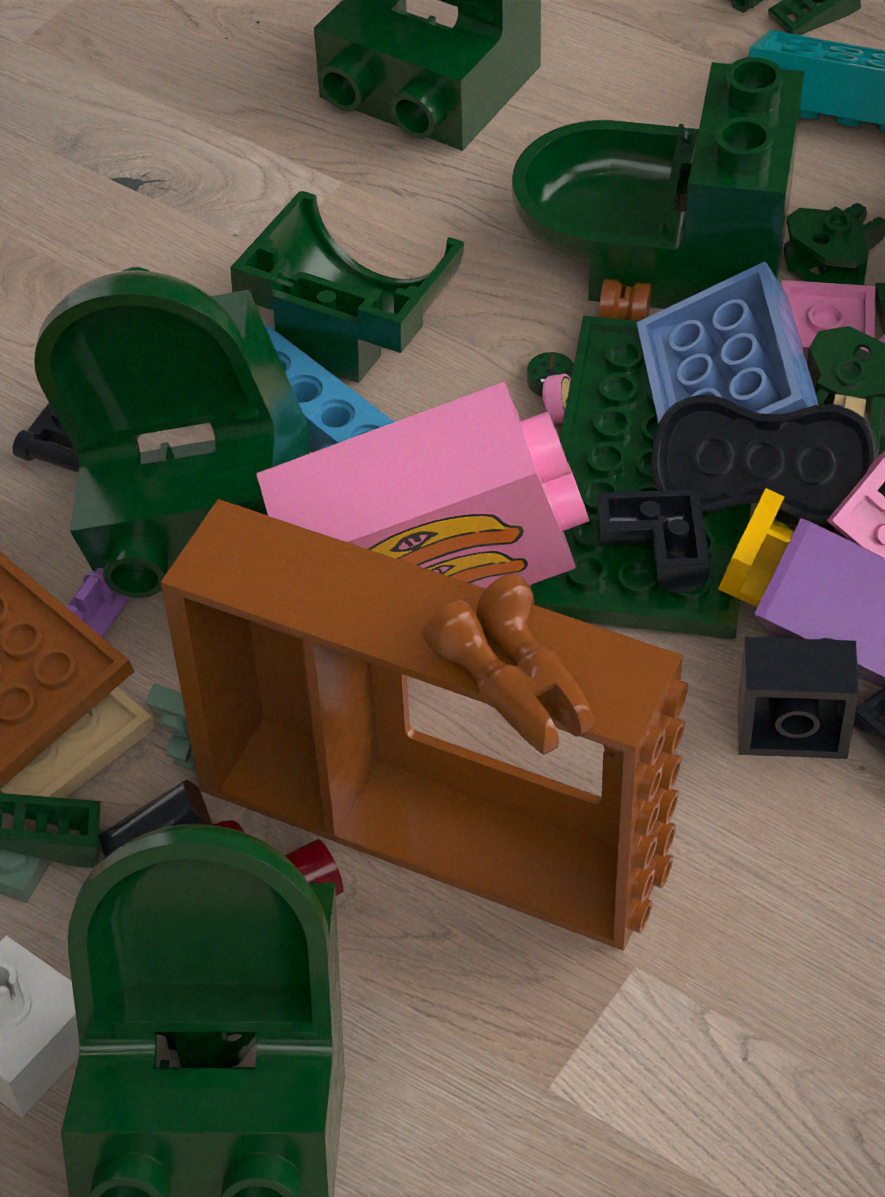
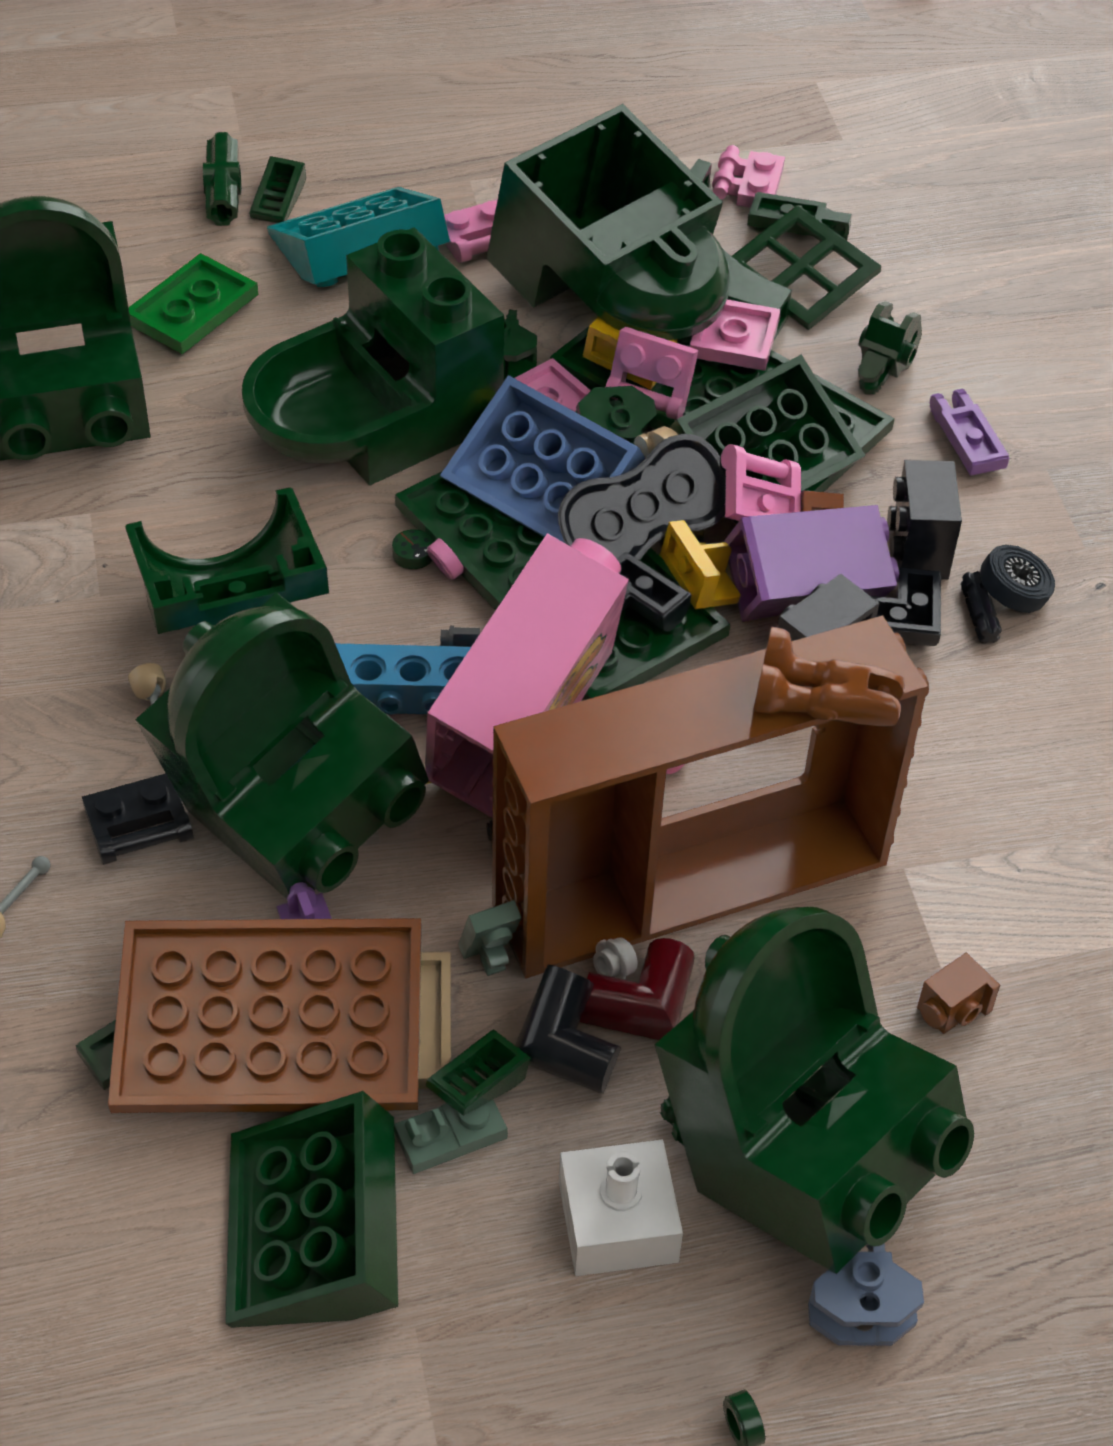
camera: 50 degrees left, 0 degrees up
(272, 826) = (615, 958): none -> white plate
(515, 1108) = (957, 994): none -> dark orange brick
(621, 57) = (191, 303): none -> green plate
(625, 301) = (408, 468): dark orange wheel -> none

